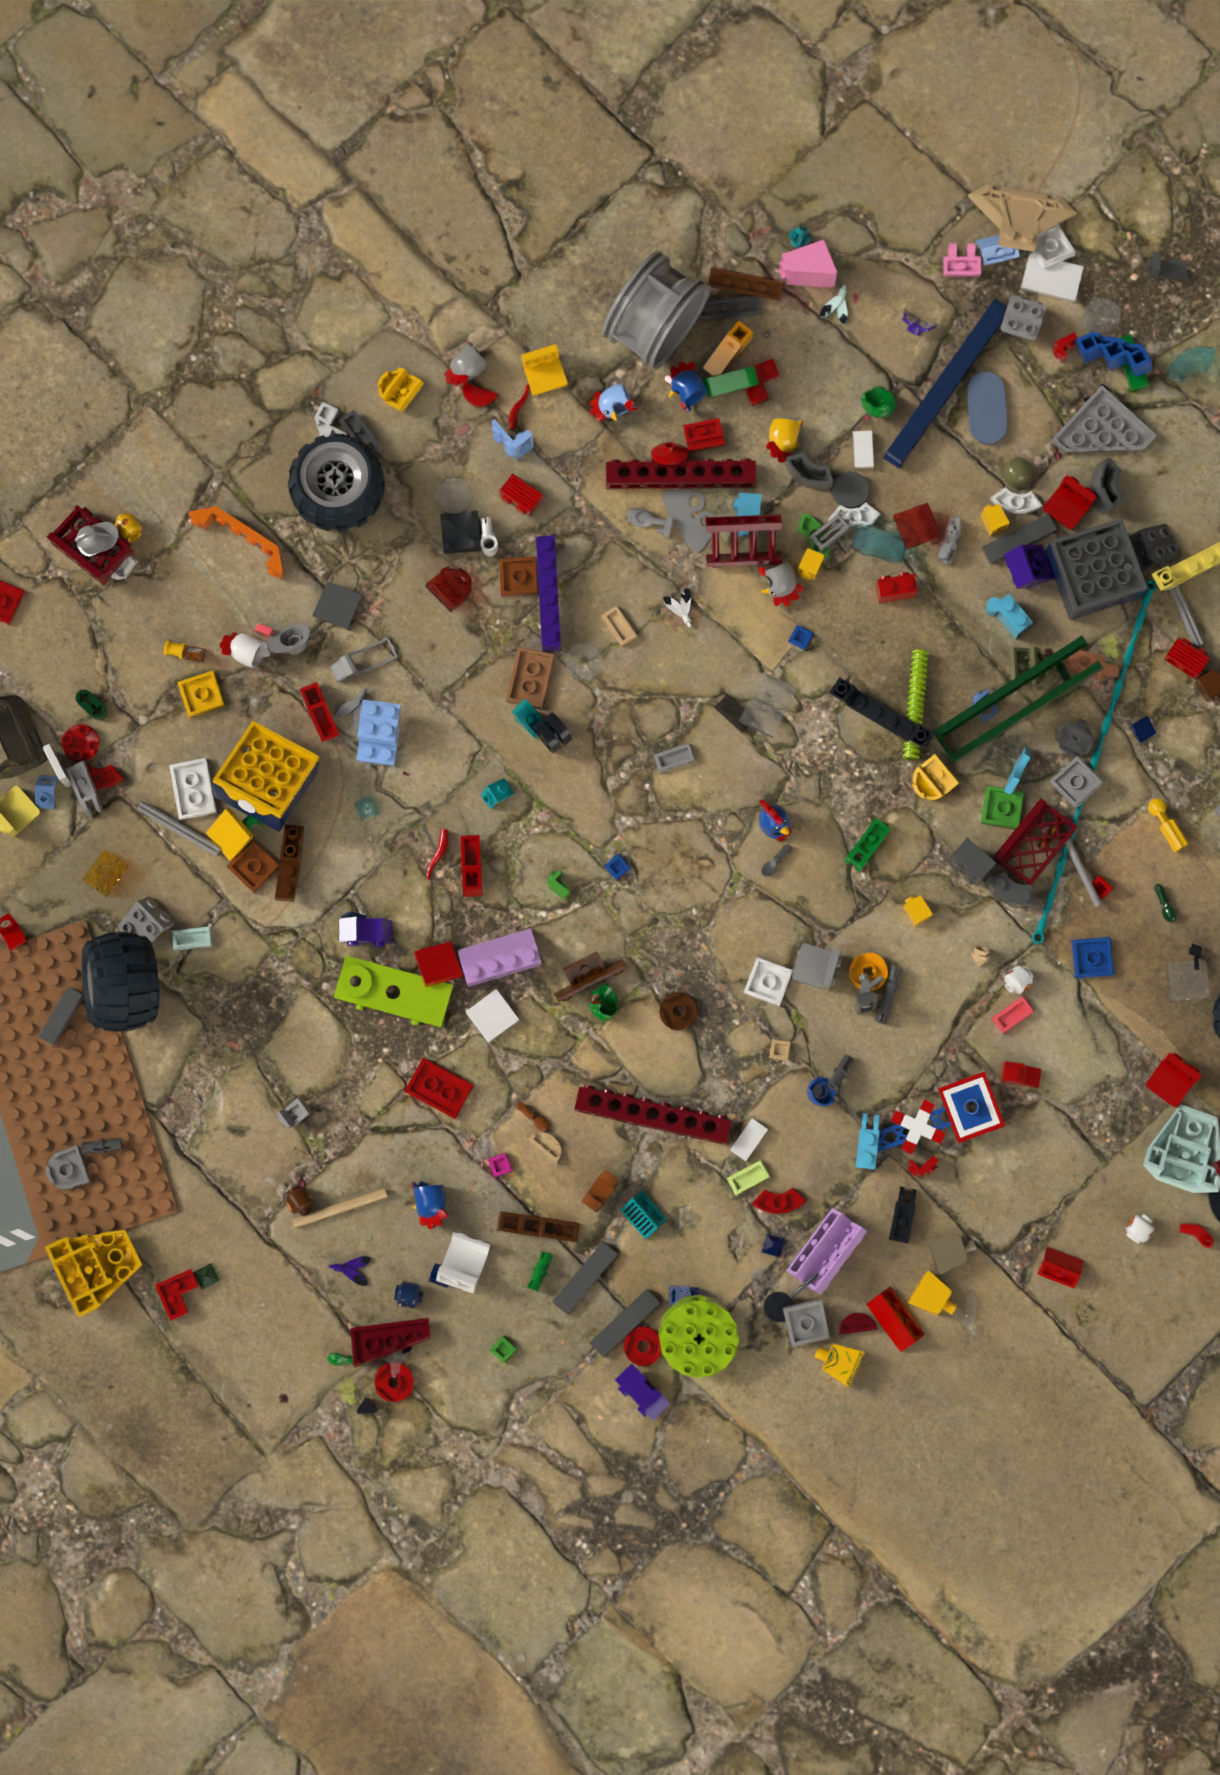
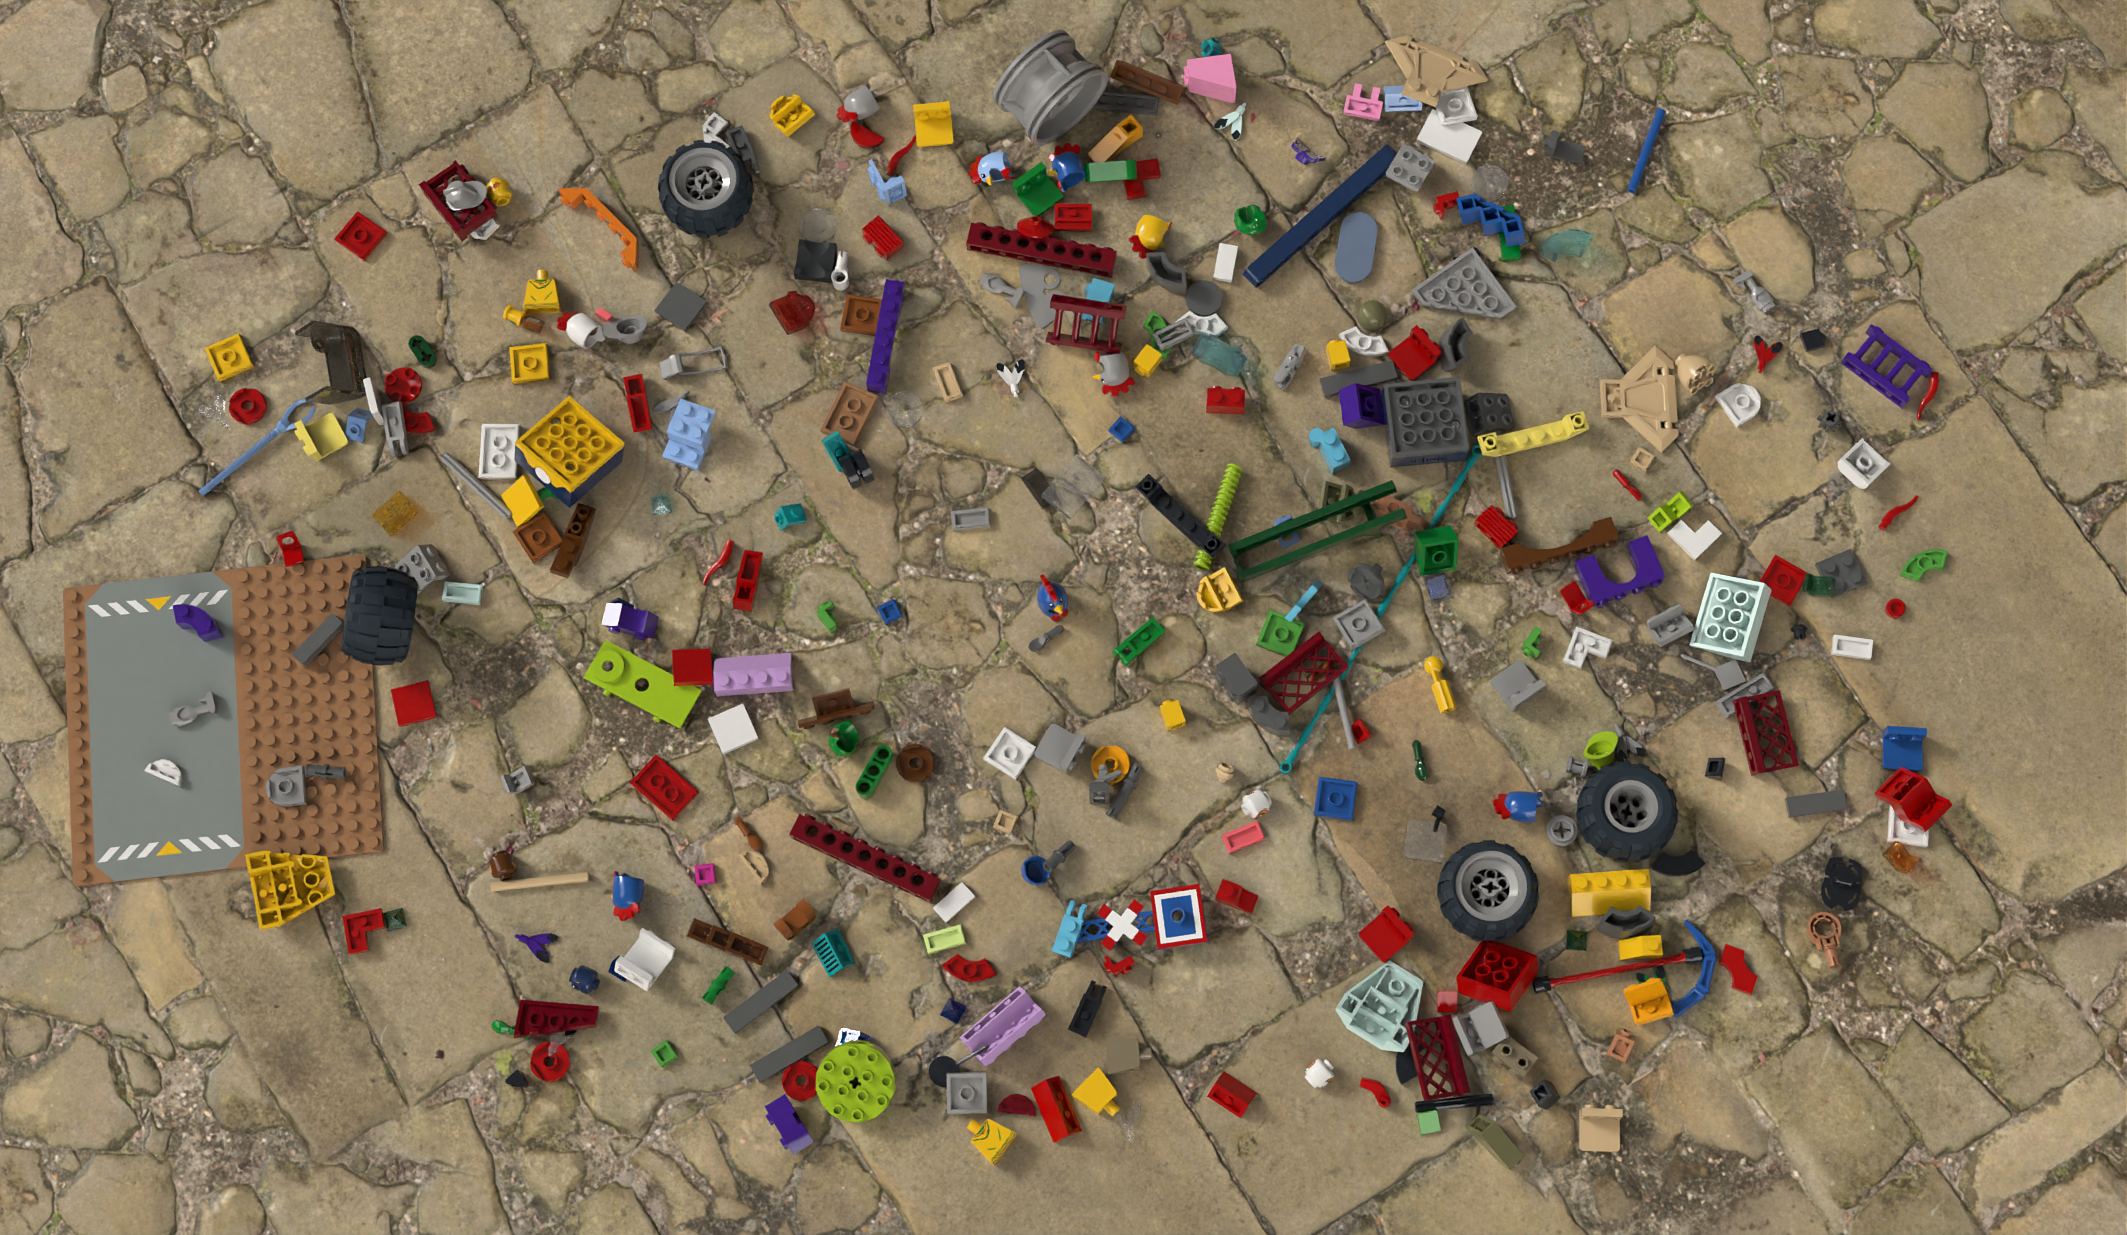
camera: 15 degrees right, 5 degrees down
(171, 1058) = (413, 703): none -> red tile
(197, 623) = (542, 295): none -> yellow torso
(646, 1020) = (874, 762): none -> green beam
(662, 416) = (1037, 190): none -> green bracket
(917, 526) = (1259, 345): clear red bracket -> none
(1134, 693) = (1436, 550): none -> green slope

